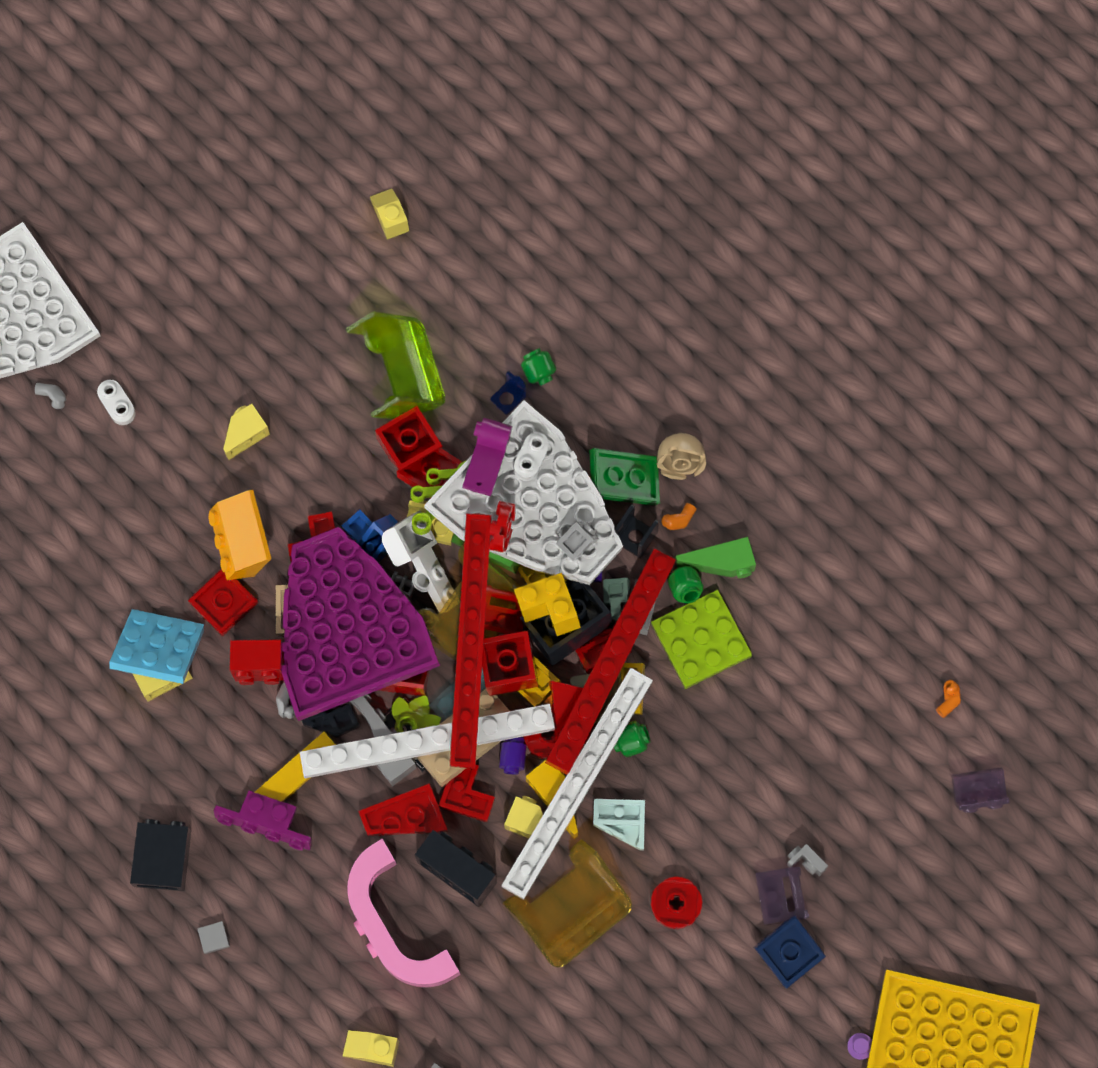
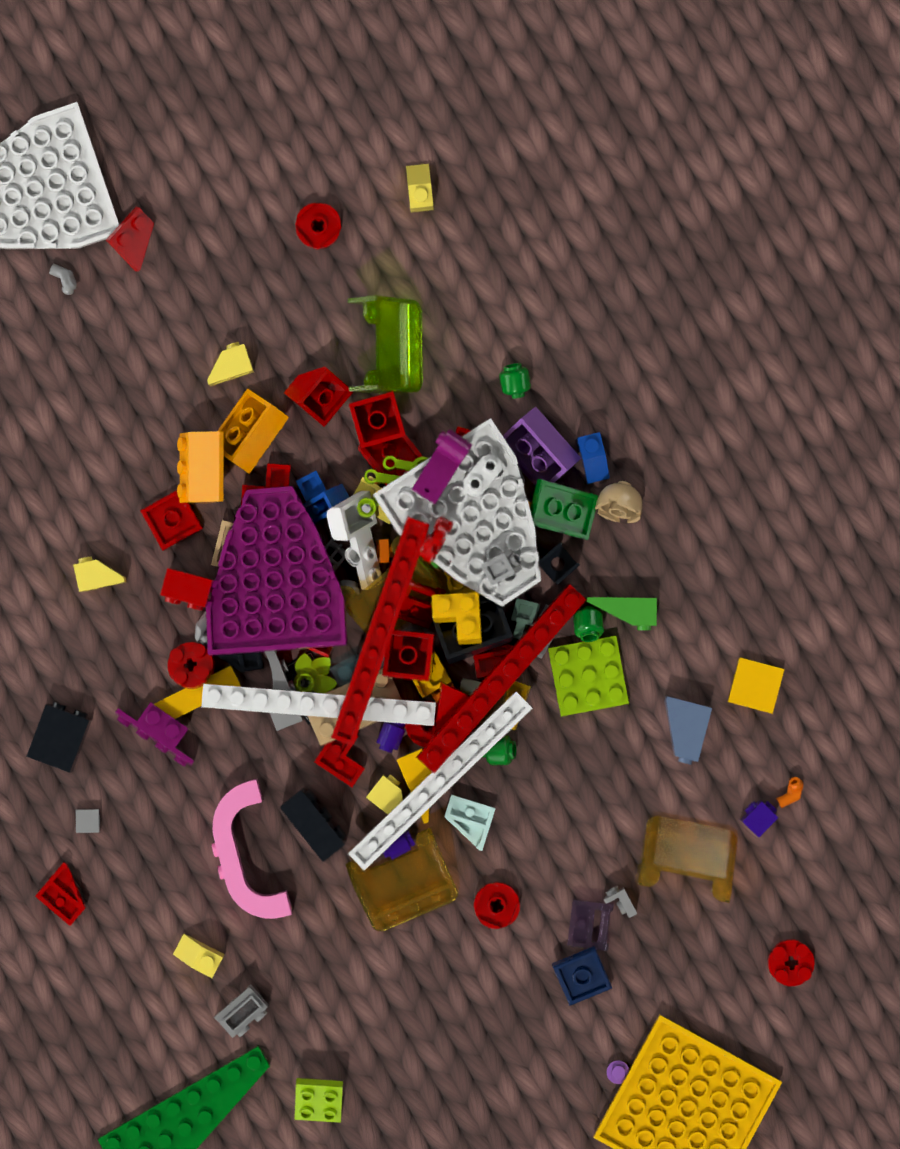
camera: 10 degrees right, 15 degrees up
(111, 335) = (132, 238): none -> red wing
(115, 401) = (121, 302): white plate -> none
(157, 646) = (101, 548): medium azure plate -> none
(206, 1024) = (62, 895): none -> red wing
(275, 730) = (183, 676): none -> red plate
(282, 488) = (250, 430): none -> light orange slope
(294, 262) = (318, 212): none -> red plate
(342, 433) = (319, 394): none -> red slope
(404, 814) = (282, 760): red wing -> none
(452, 569) = (383, 550): none -> orange plate
(514, 386) = (489, 393): clear blue bracket -> none
(554, 868) = (399, 846): none -> dark purple brick
(584, 423) = (540, 448): none -> medium lavender slope
(640, 419) = (593, 457): none -> blue slope
(681, 520) = (601, 561): orange arm -> none
(819, 660) = (687, 728): none -> sand blue slope
(862, 785) = (688, 851): none -> clear yellow windscreen
(877, 600) = (755, 685): none -> yellow tile
(924, 732) = (759, 817): none -> dark purple brick
(980, 790) = (791, 883): clear purple bracket -> none
(1001, 889) = (780, 954): none -> red plate

